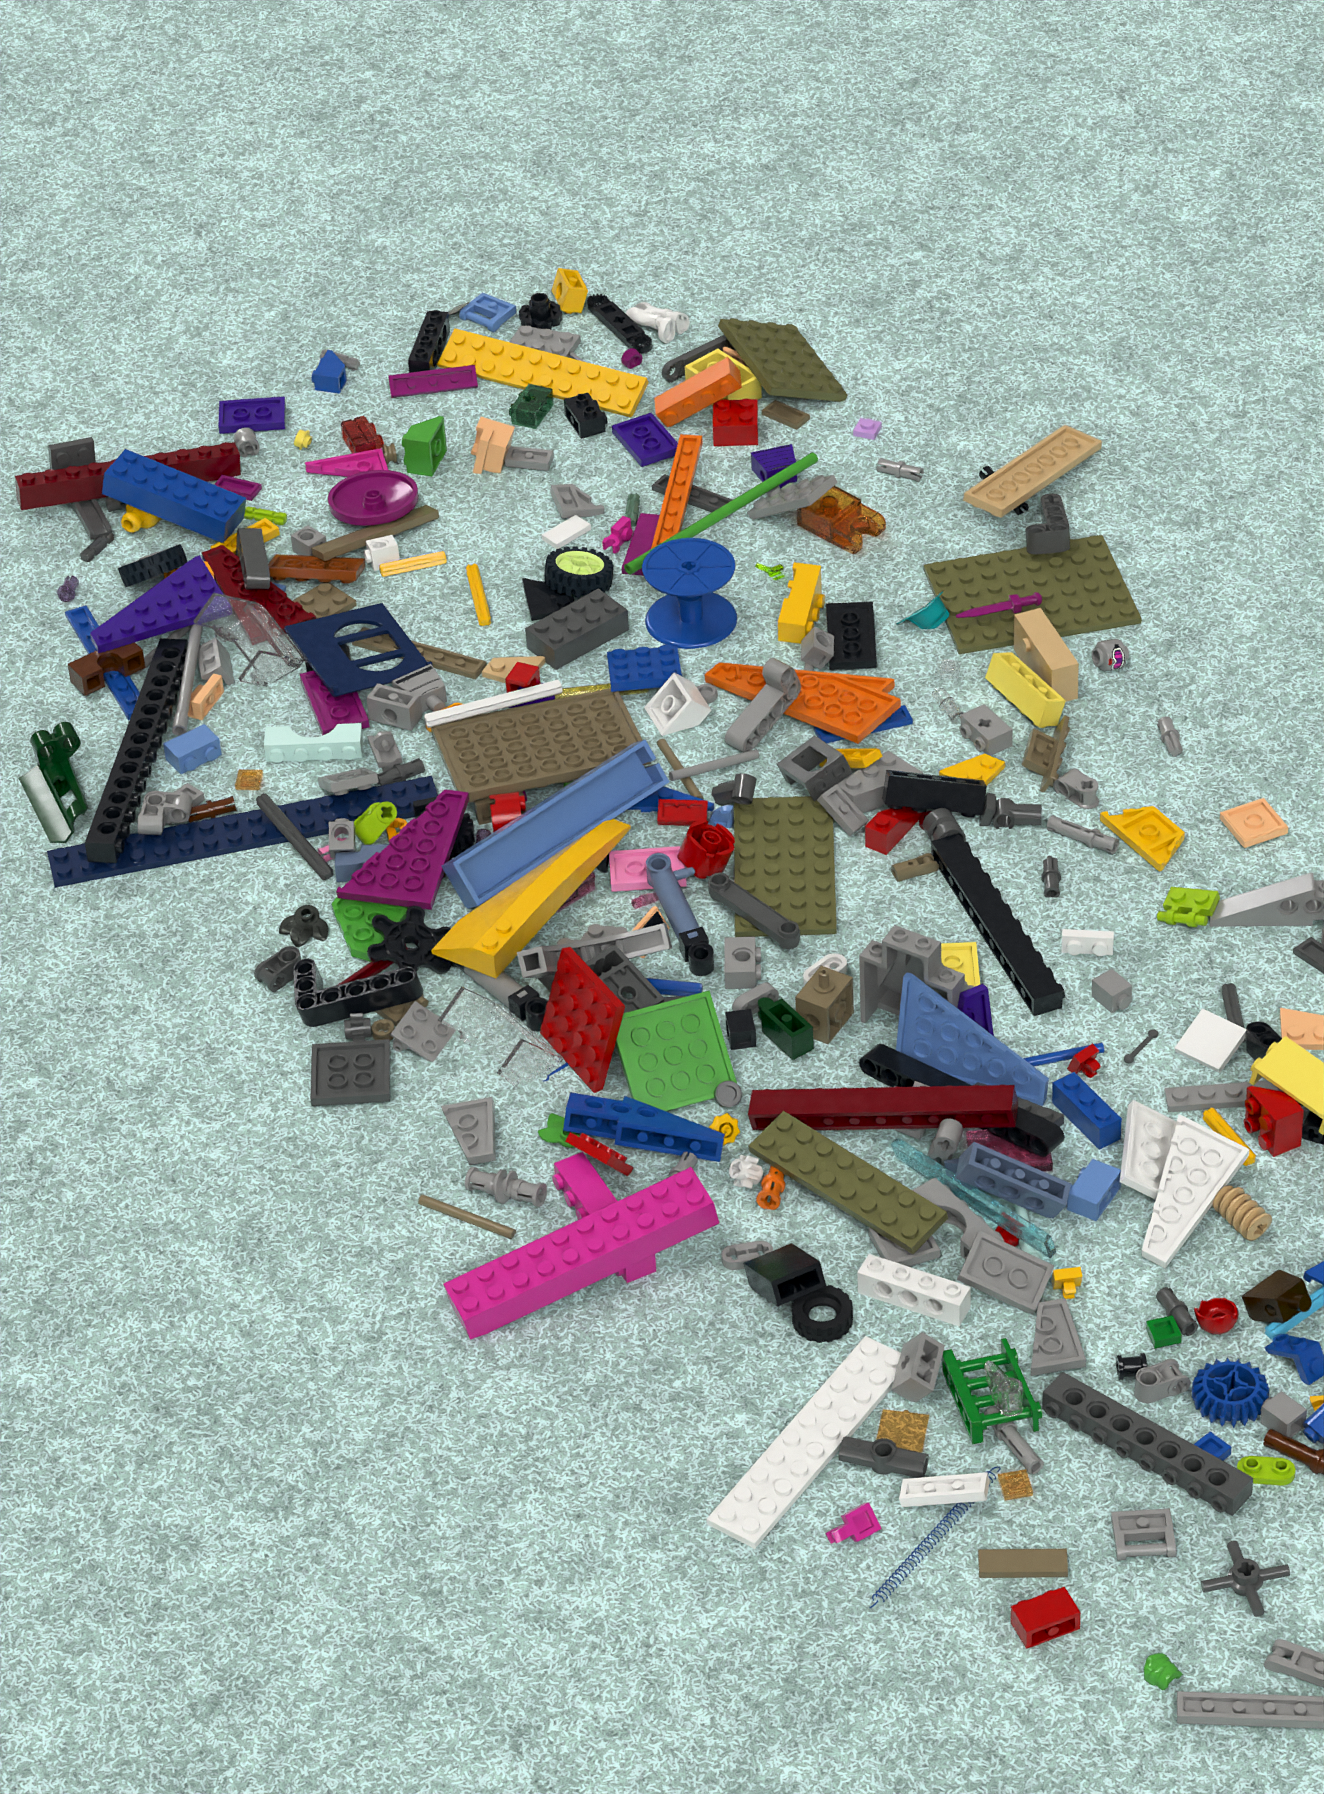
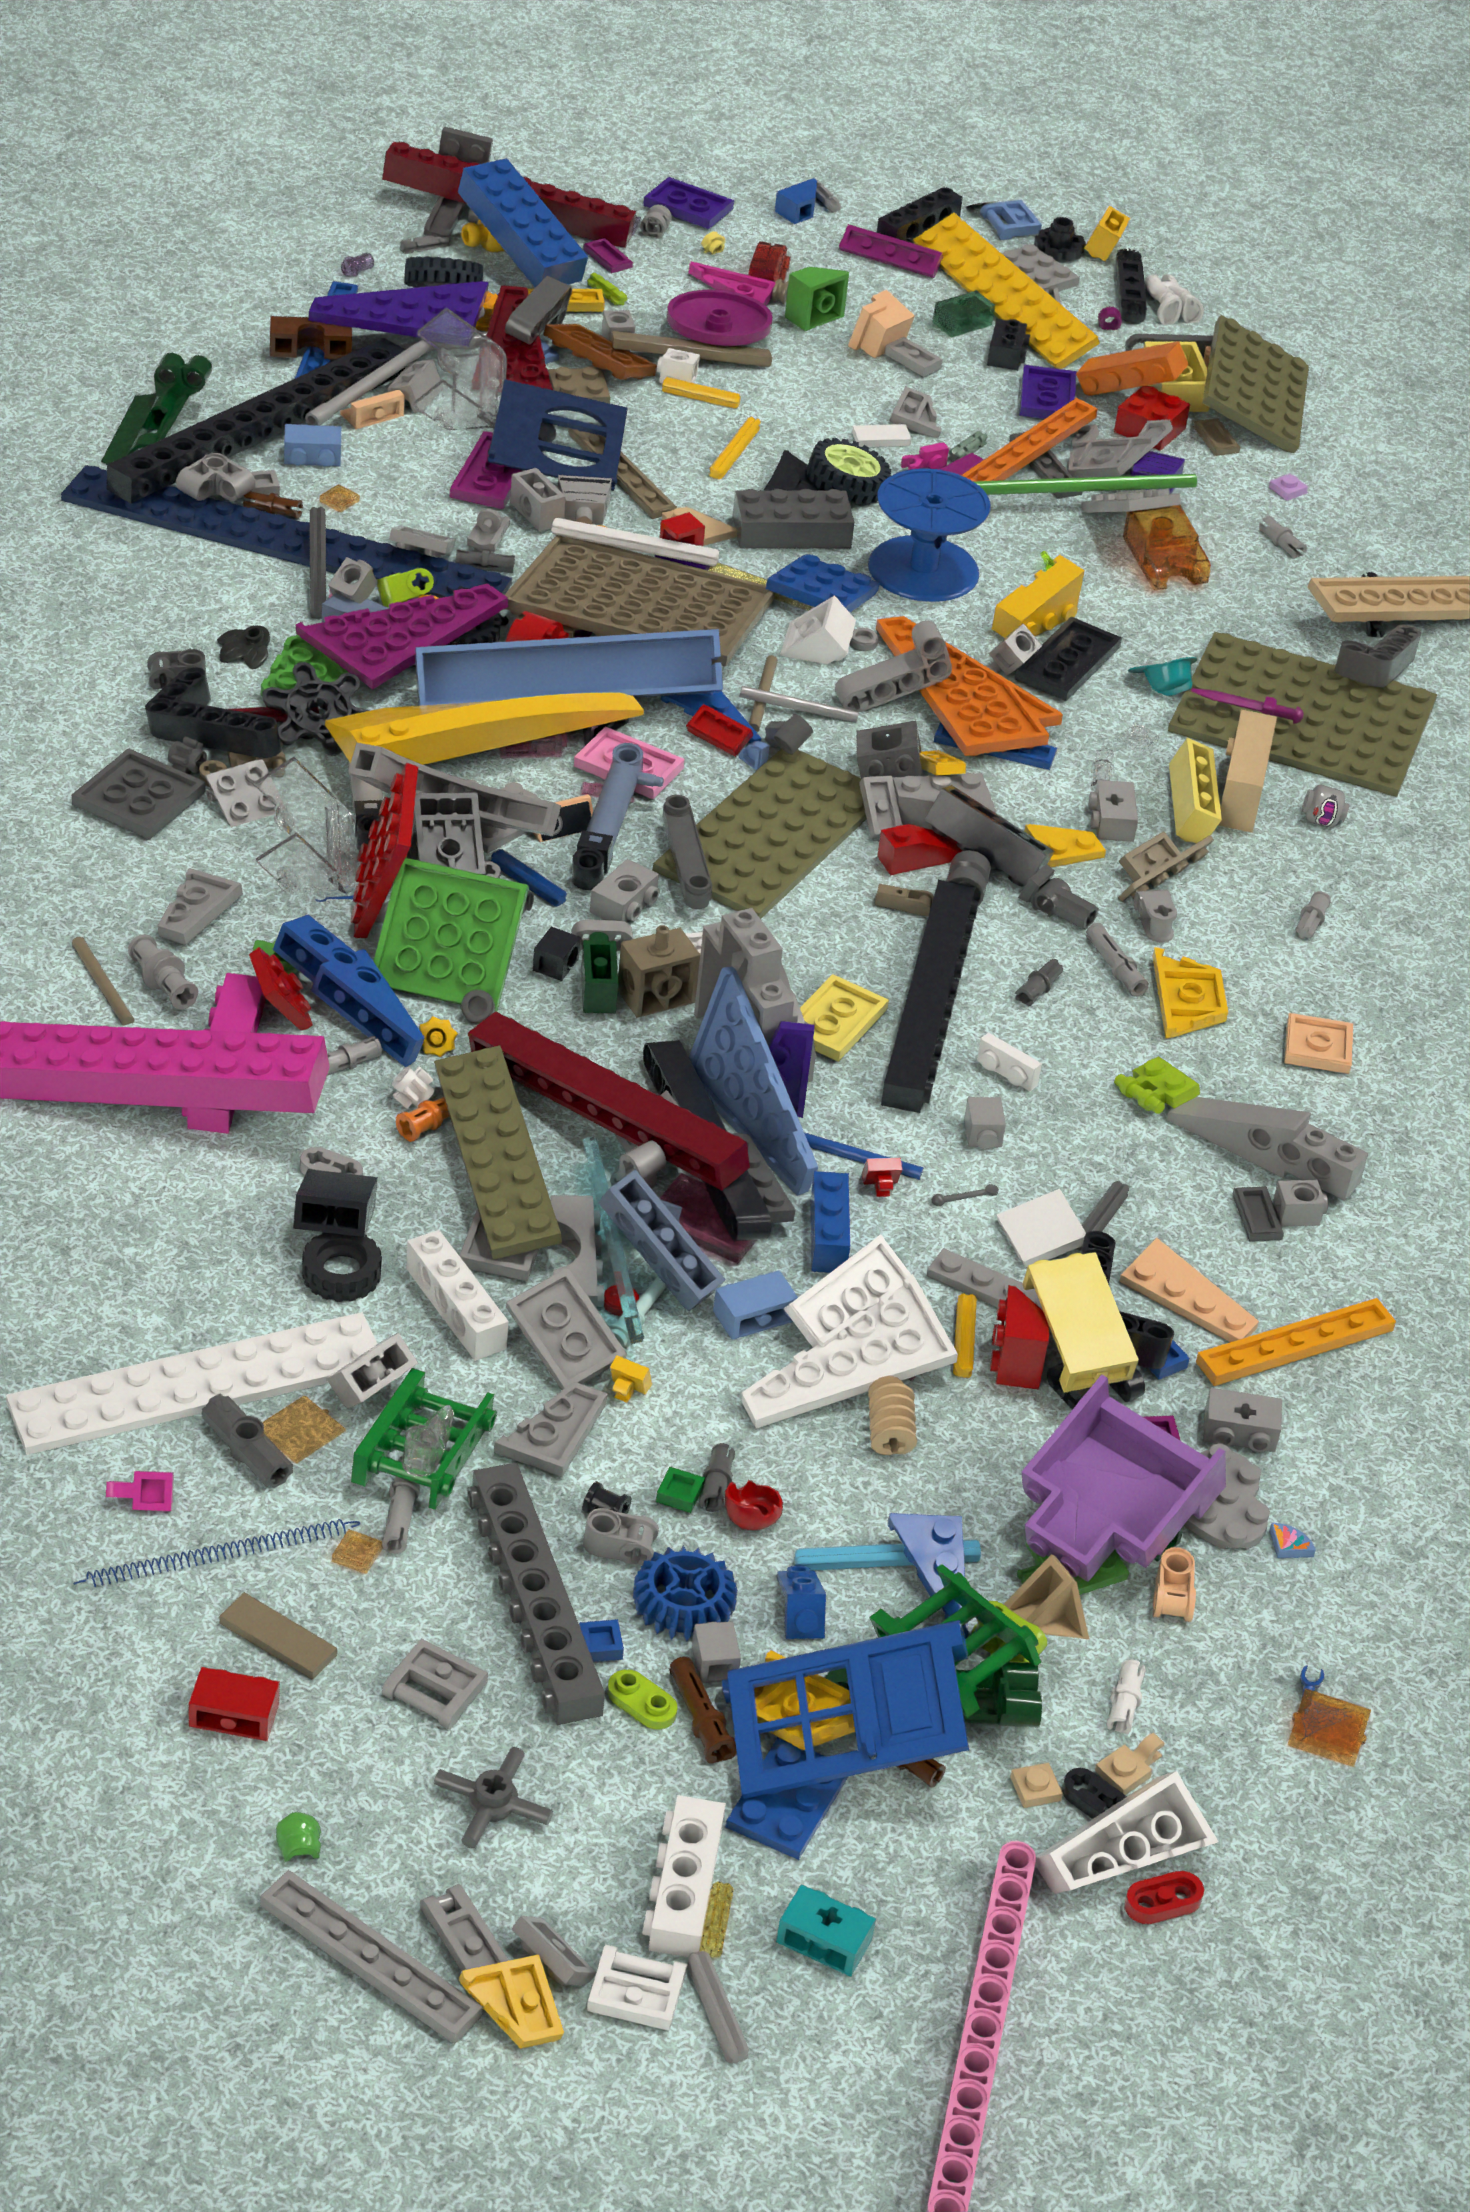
camera: 25 degrees right, 0 degrees up
(341, 743) = (456, 507): light aqua arch -> none
(706, 848) = (698, 769): red brick -> none
(739, 467) = (1112, 456): none -> light grey wing
(944, 1489) = (270, 1509): white plate -> none
(1277, 1298) = (837, 1524): dark brown torso -> none

